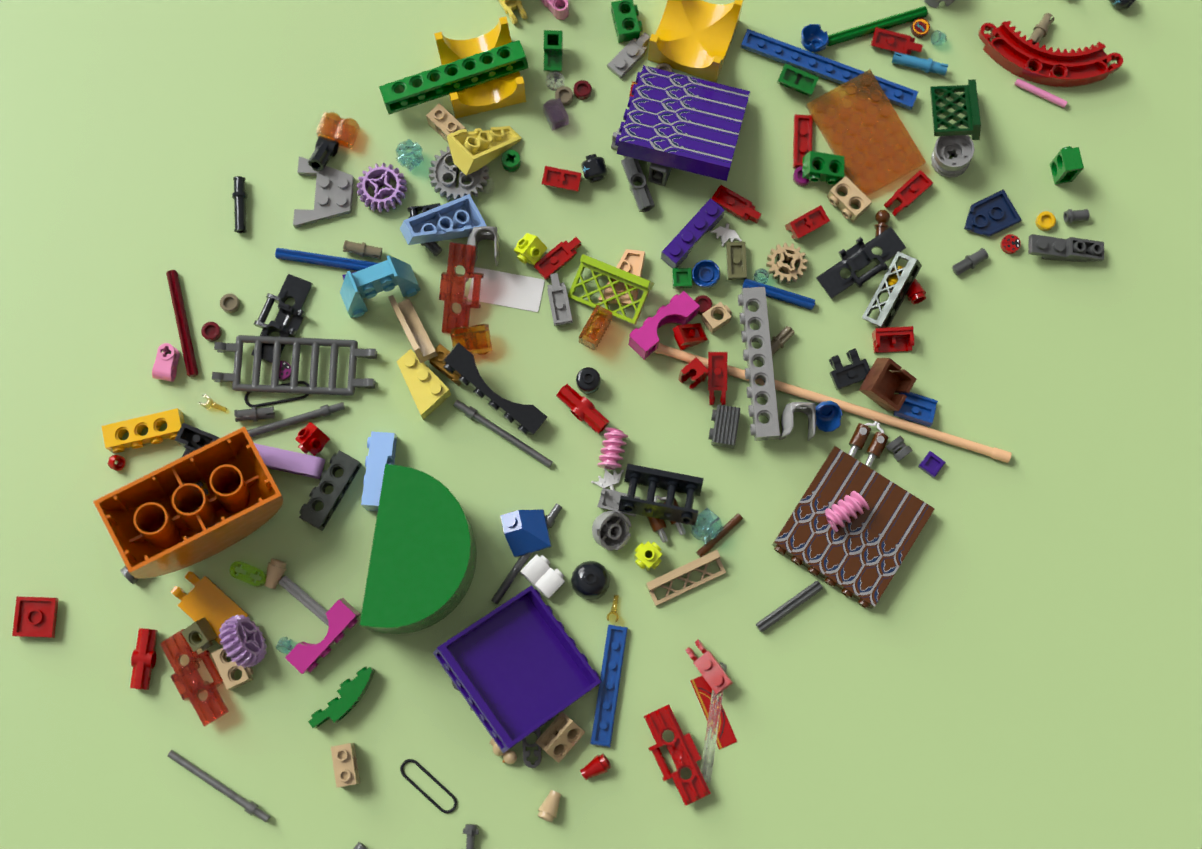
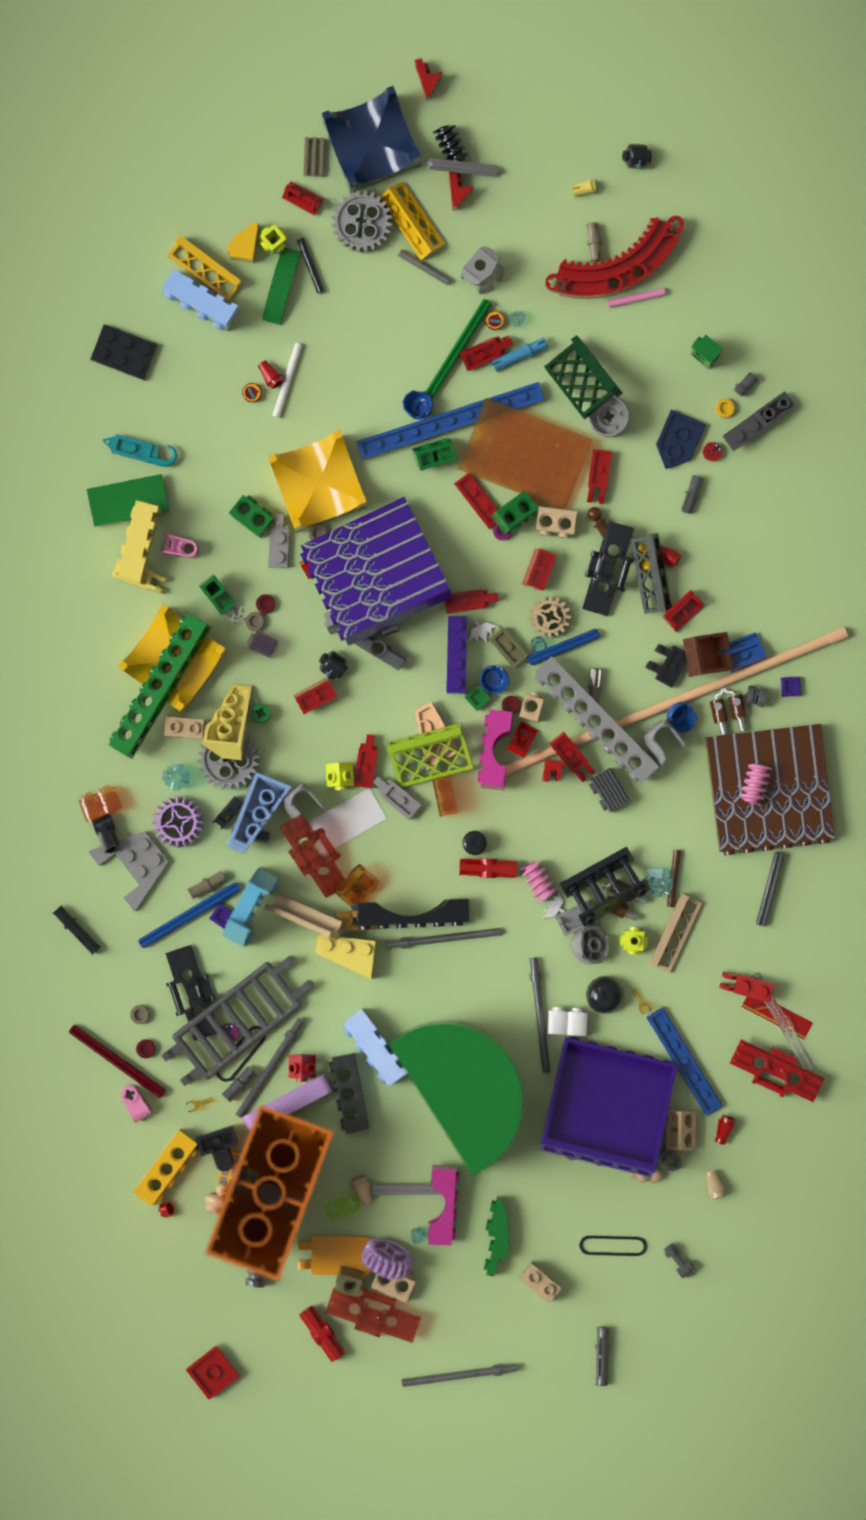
camera: 40 degrees left, 10 degrees up
(526, 531) = (526, 999): blue slope -> none

